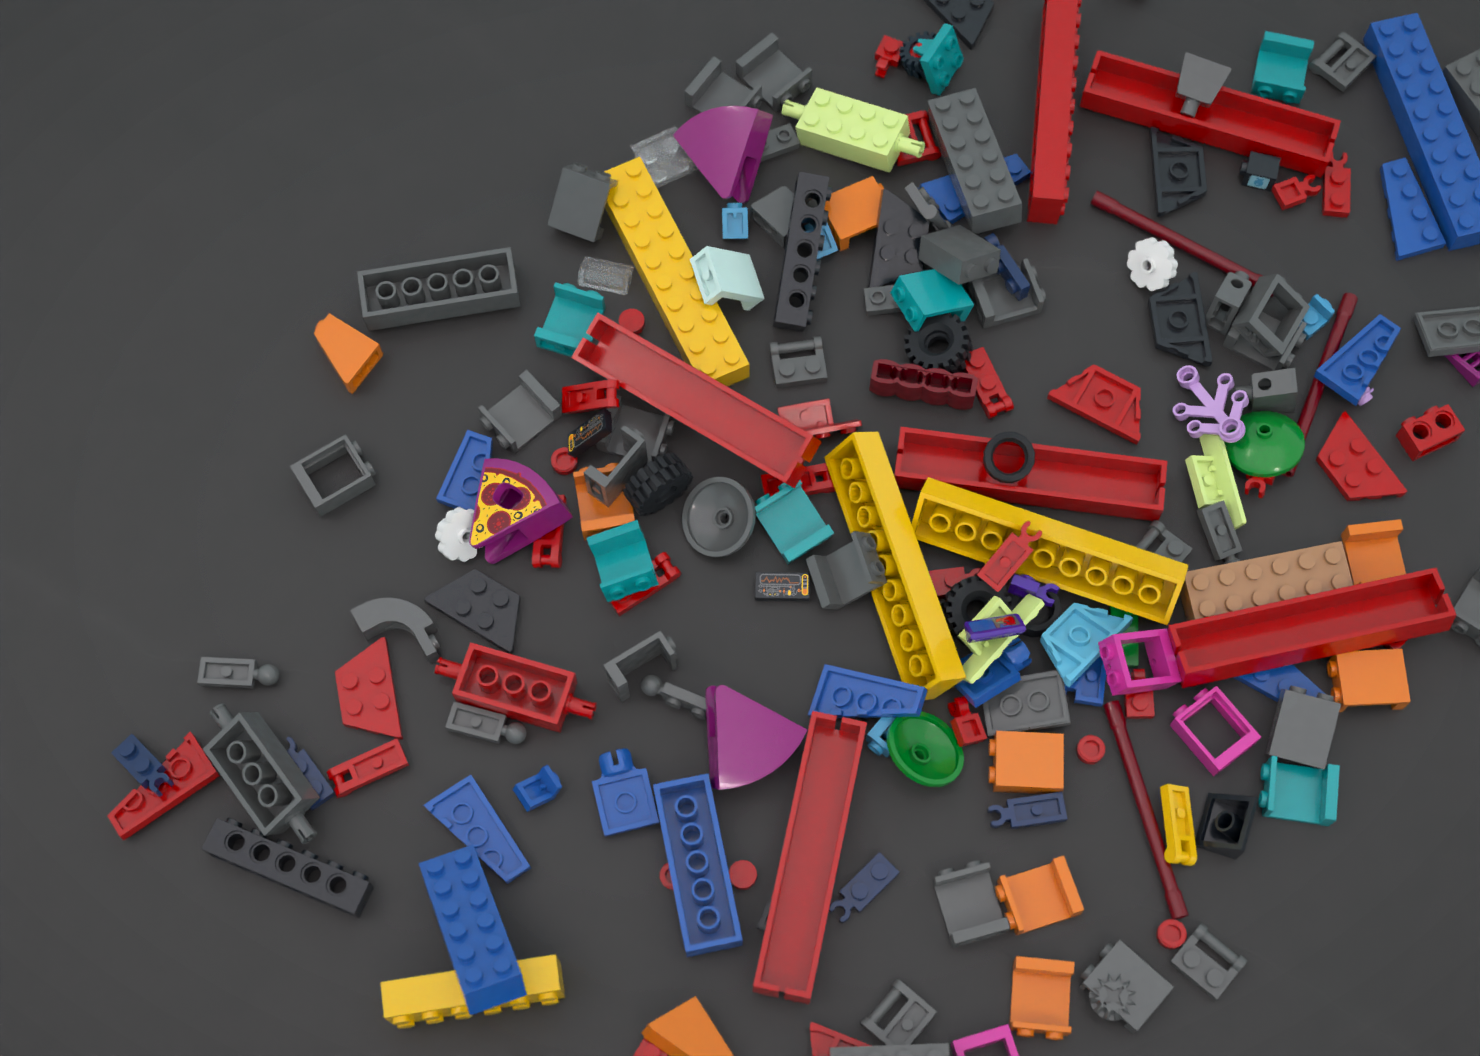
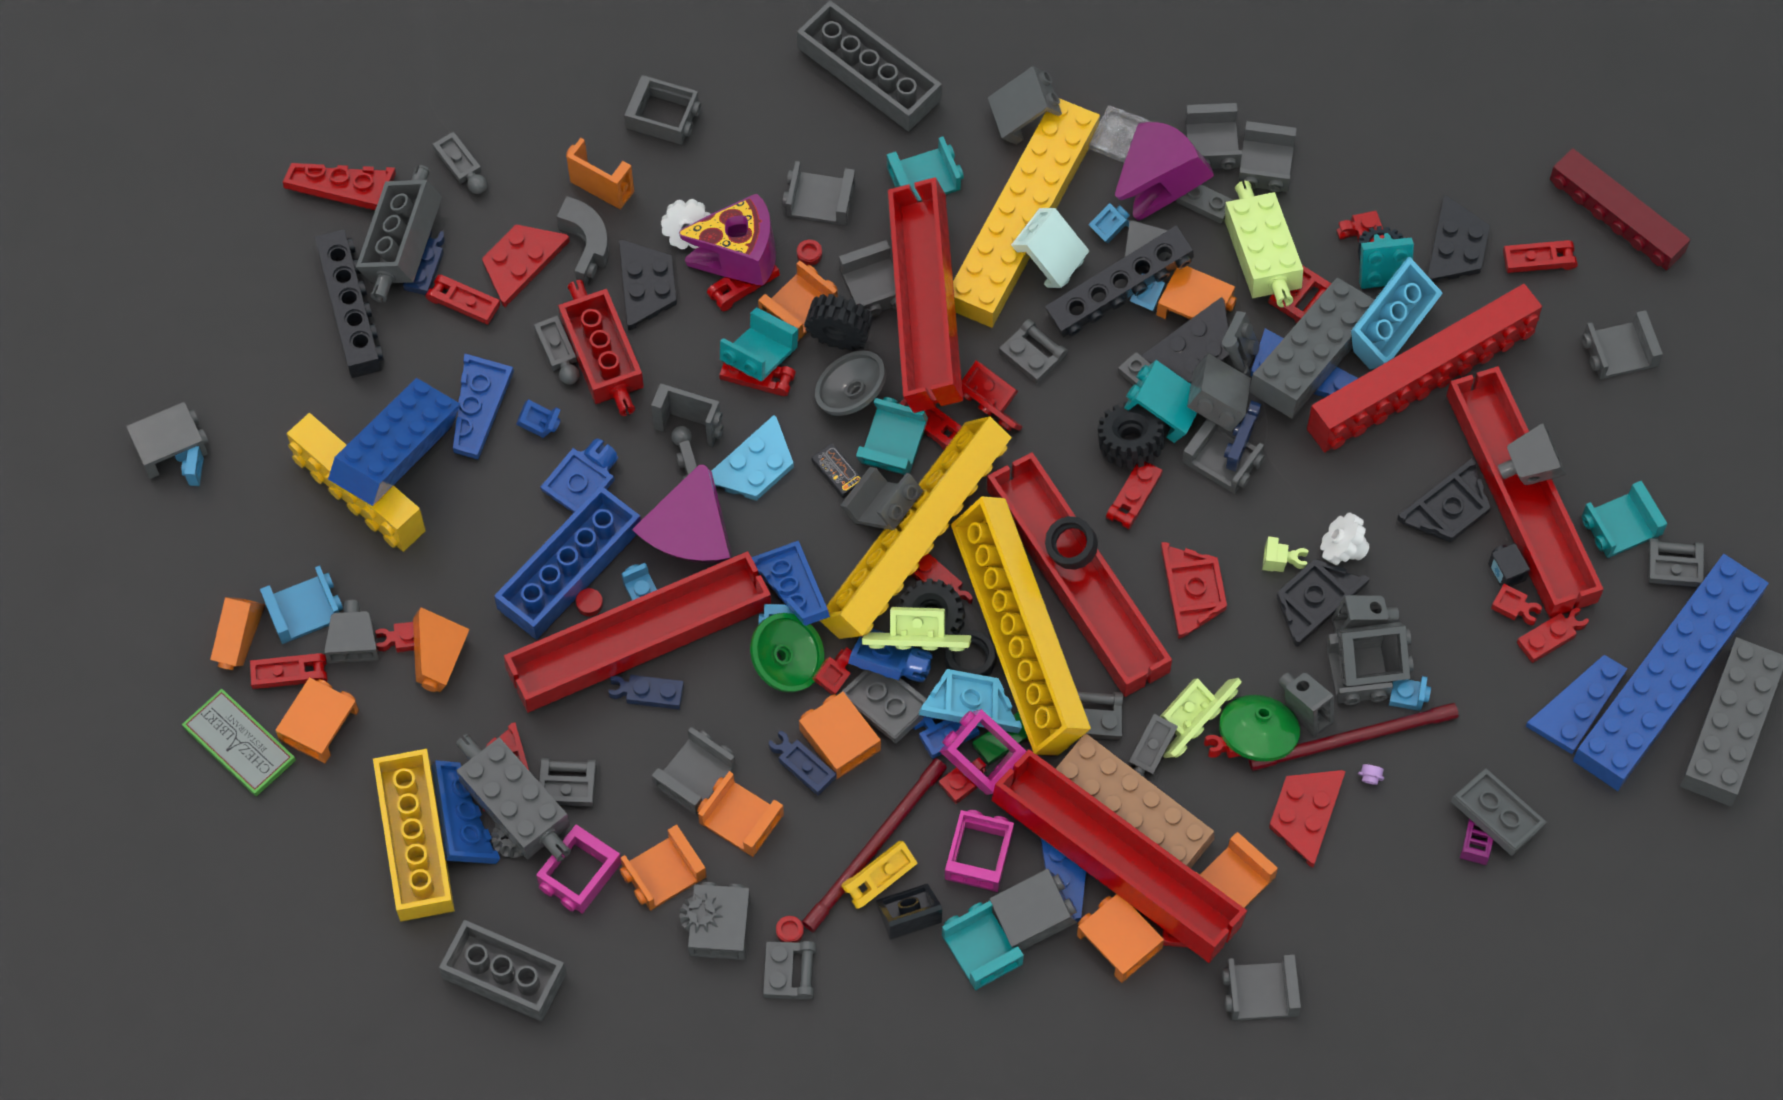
camera: 50 degrees right, 5 degrees down
(142, 764) = (345, 155): dark blue plate -> none
(347, 350) = (765, 46): orange slope -> none
(354, 576) = (611, 189): none -> orange panel
(464, 475) = (725, 194): blue wing -> none
(589, 433) = (840, 248): black tile -> none
(590, 396) = (869, 226): red plate -> none
(605, 275) = (985, 168): clear slope -> none
(609, 488) = (810, 288): dark grey panel -> none
(632, 320) = (963, 214): red tile -> none
(723, 644) = (755, 463): none -> medium azure wing
(762, 822) = (637, 581): none -> dark azure bracket
(916, 383) = (1089, 448): dark red brick -> none
(994, 628) = (914, 622): dark purple slope -> none
(995, 87) = (1394, 315): none -> medium azure slope
(1008, 558) = (982, 595): red plate -> none
(1025, 585) = (977, 629): dark purple plate -> none
(1090, 749) = (890, 775): red tile -> none
(1113, 207) = (1375, 480): dark red piece -> none
(1126, 320) = (1277, 556): none -> yellowish green piece
(1212, 408) = (1244, 686): lavender plant -> none
(1359, 359) = (1393, 748): blue wing -> none
(1432, 435) = (1379, 852): red brick -> none

